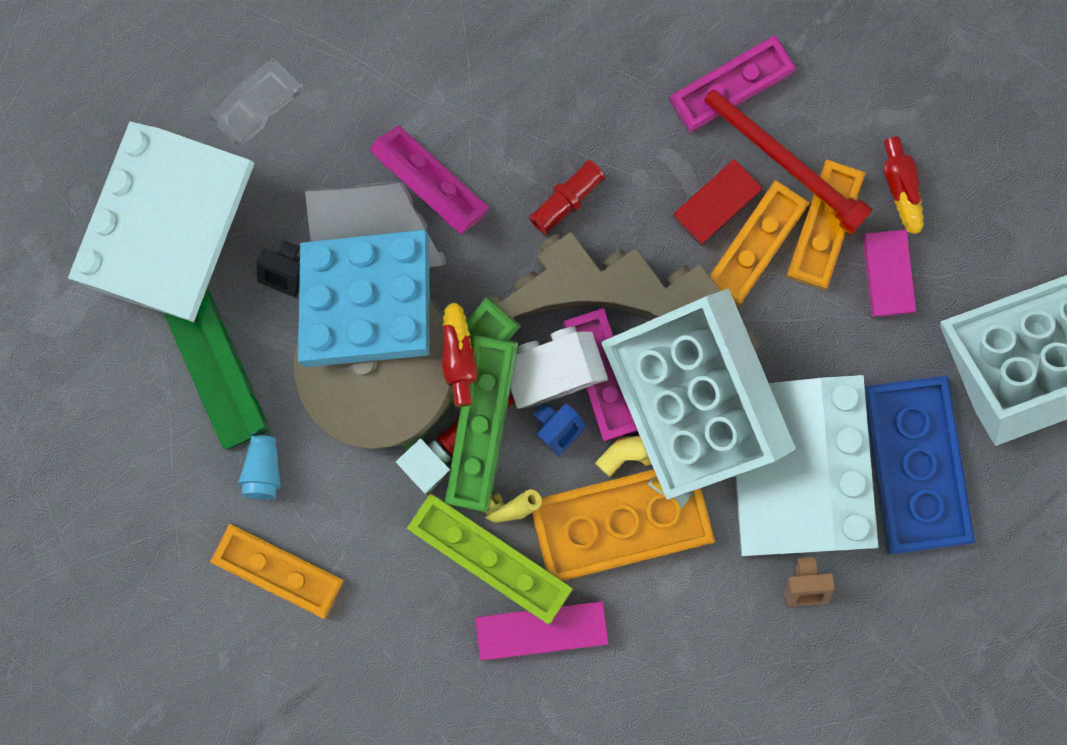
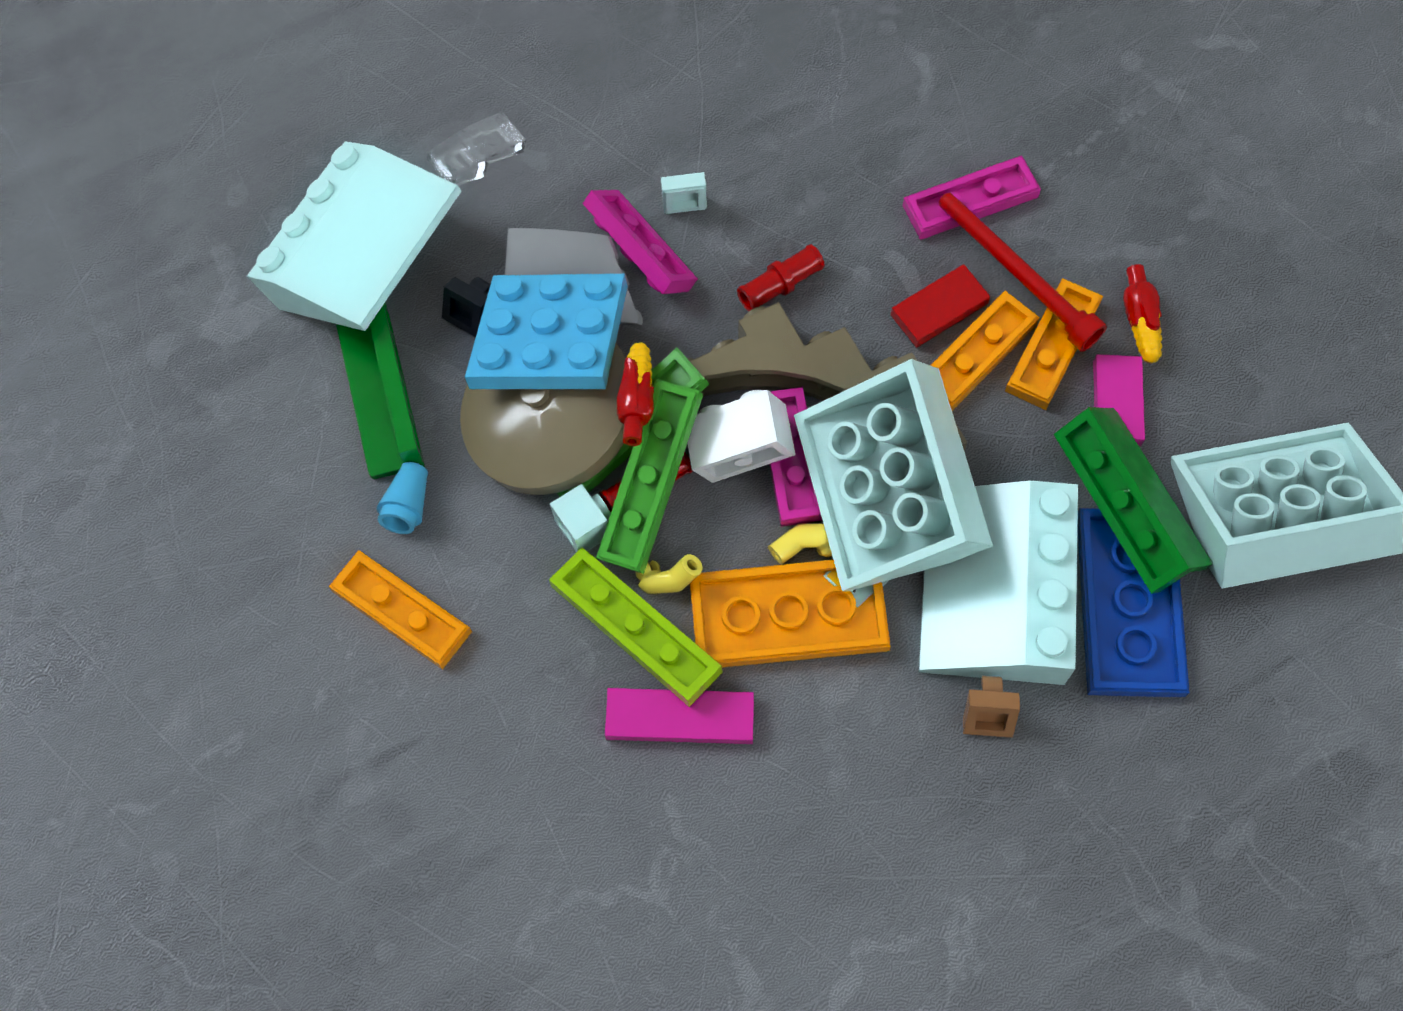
camera: 15 degrees right, 15 degrees down
(463, 123) = (684, 193): none -> light aqua tile
(558, 428) = (735, 501): blue tile -> none
(911, 374) = (1132, 498): none -> green panel

